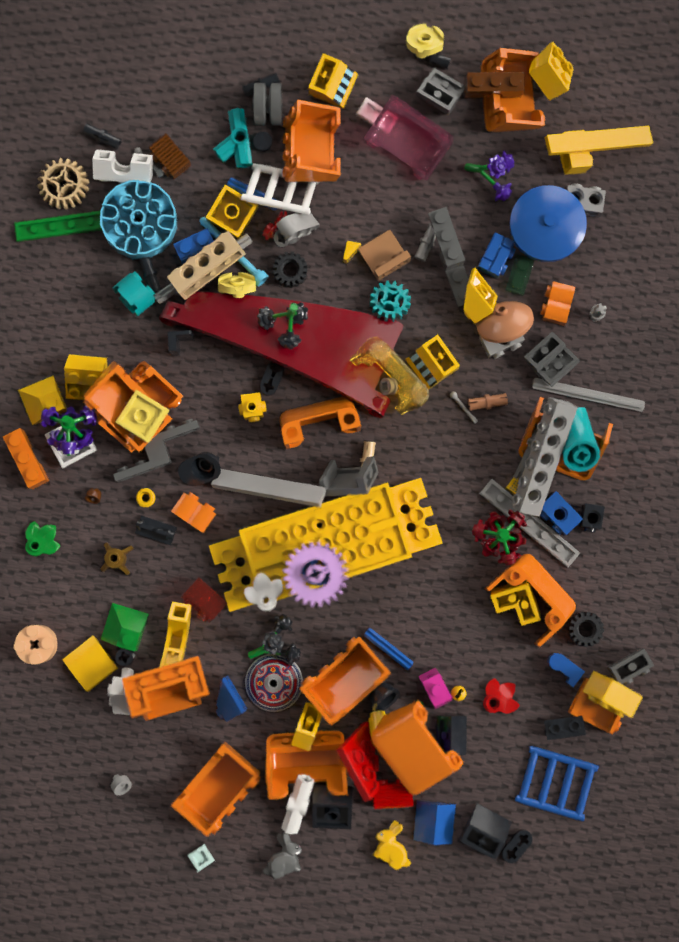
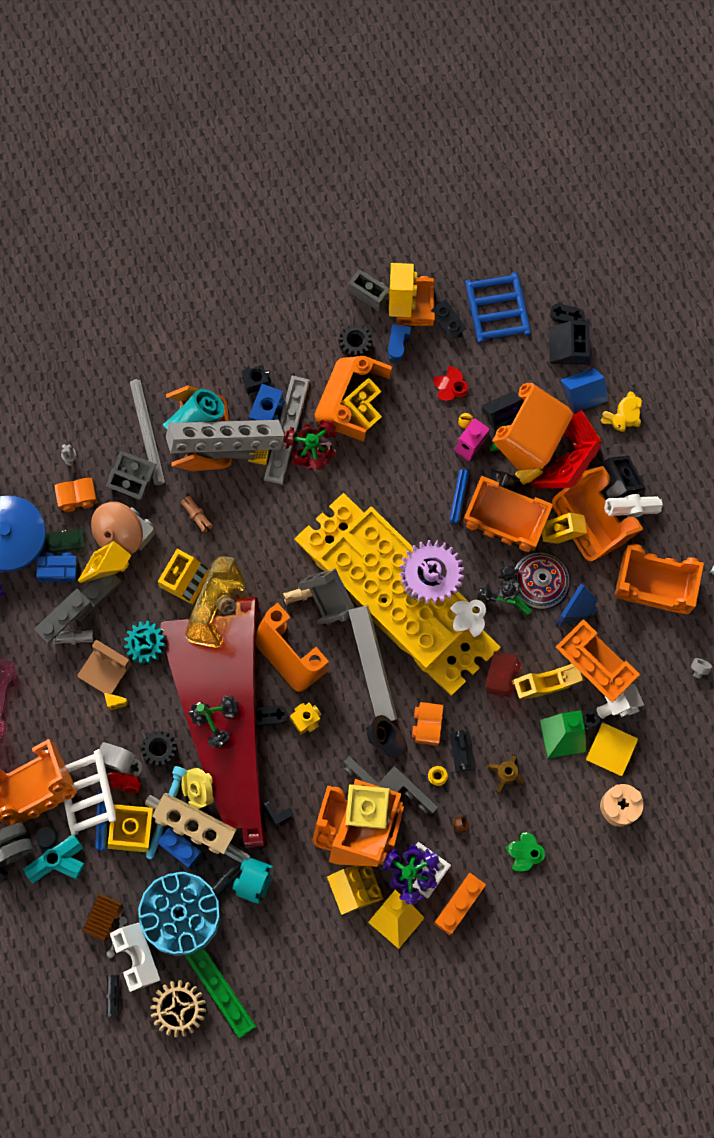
camera: 125 degrees left, 10 degrees down
(285, 860) = (686, 495): dark grey animal -> none
(453, 395) = (204, 547): light grey hinge -> none

